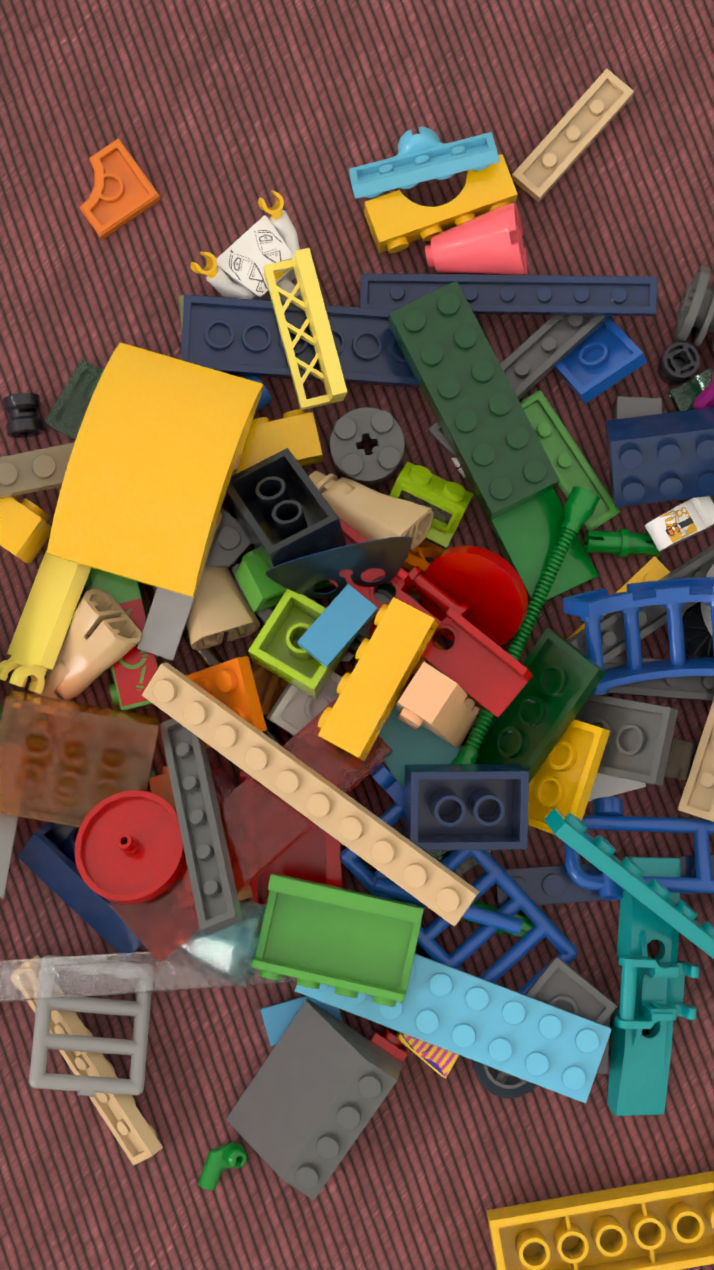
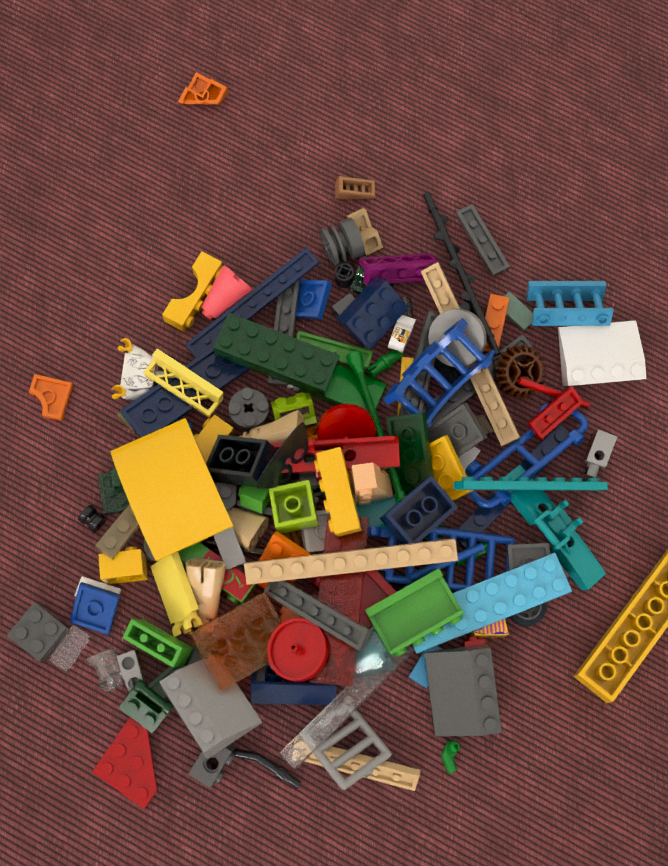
camera: 45 degrees left, 10 degrees down
(337, 626) = (303, 485): dark azure tile -> none
(423, 159) = (171, 279): medium azure plate -> none
(572, 135) = (222, 222): tan plate -> none

